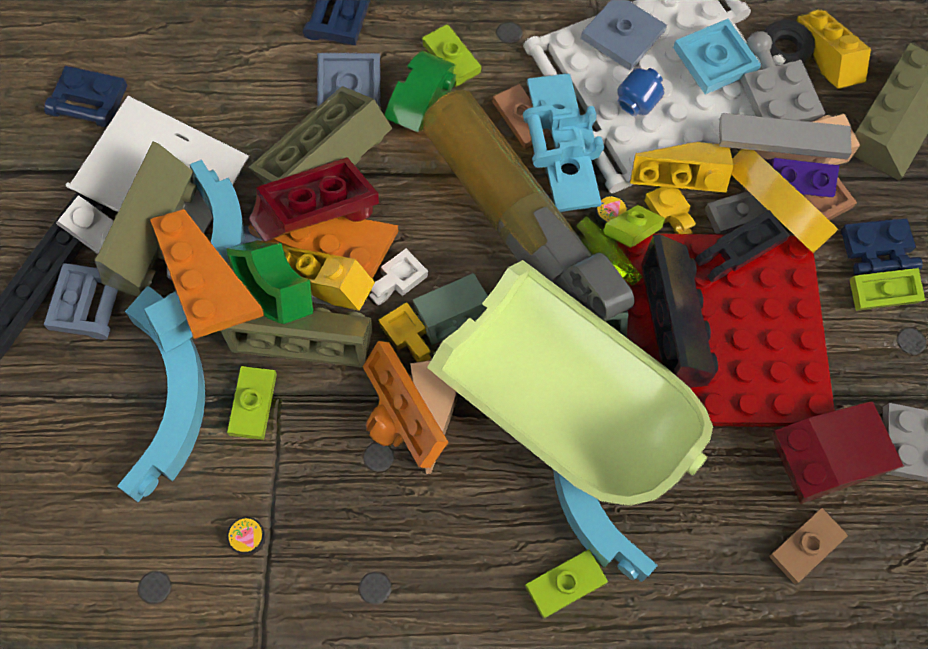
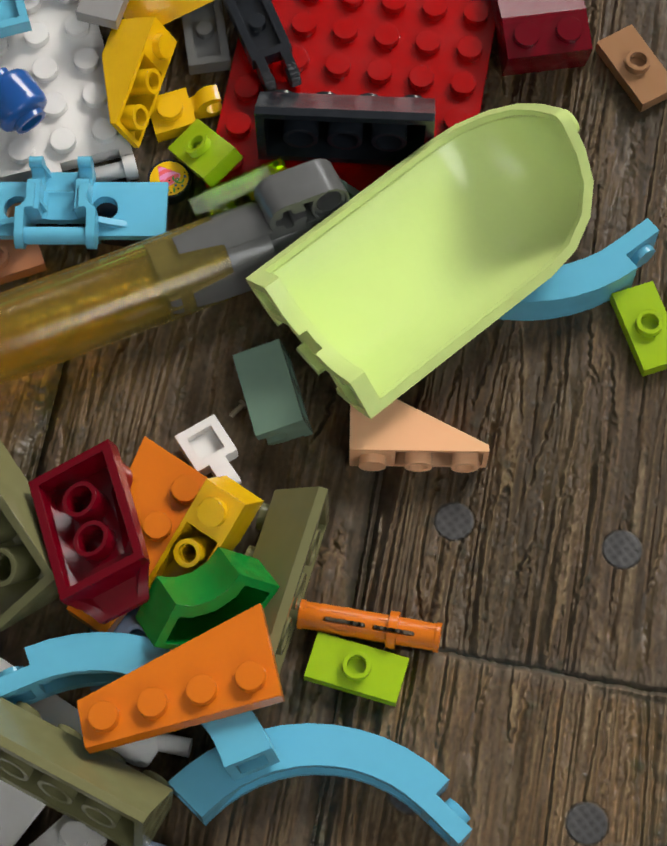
camera: 75 degrees left, 0 degrees up
(246, 536) = (538, 695): tile -> none
(282, 417) = (425, 637): none -> orange pin
(401, 409) = (411, 466): orange plate -> none
(404, 330) = (290, 458): yellow plate -> none

